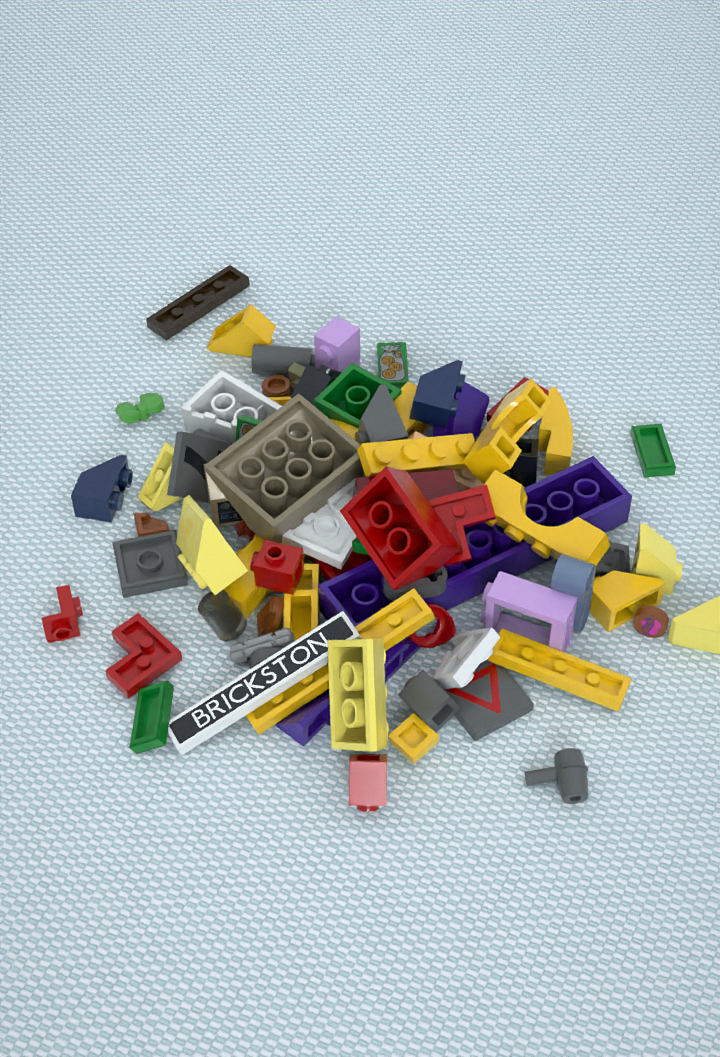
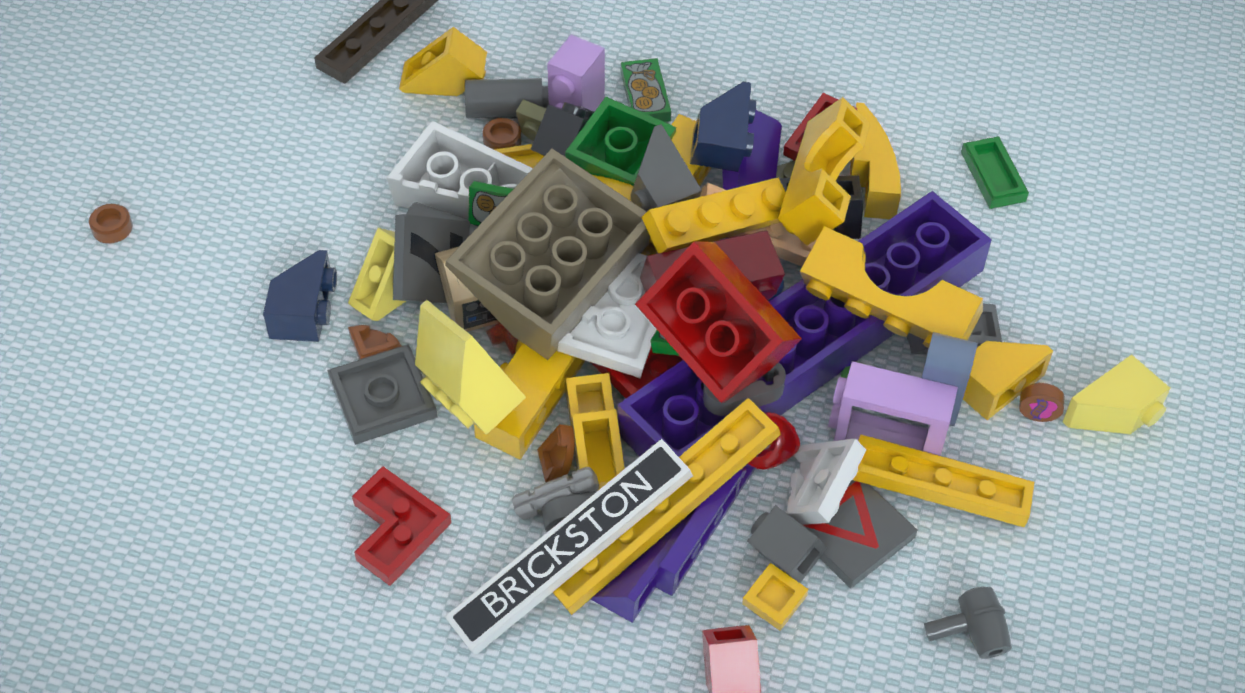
camera: 10 degrees left, 5 degrees up
(64, 624) = (289, 492): red bracket -> none
(148, 404) = (338, 173): bright green piece -> none
(152, 717) = (428, 609): green tile -> none
(222, 615) = (496, 458): clear smoke brick -> none
(278, 567) = (561, 385): red brick -> none
(357, 694) = (700, 551): light yellow slope -> none
(462, 511) = (793, 286): red plate -> none
(656, 558) = (1033, 318): light yellow slope -> none

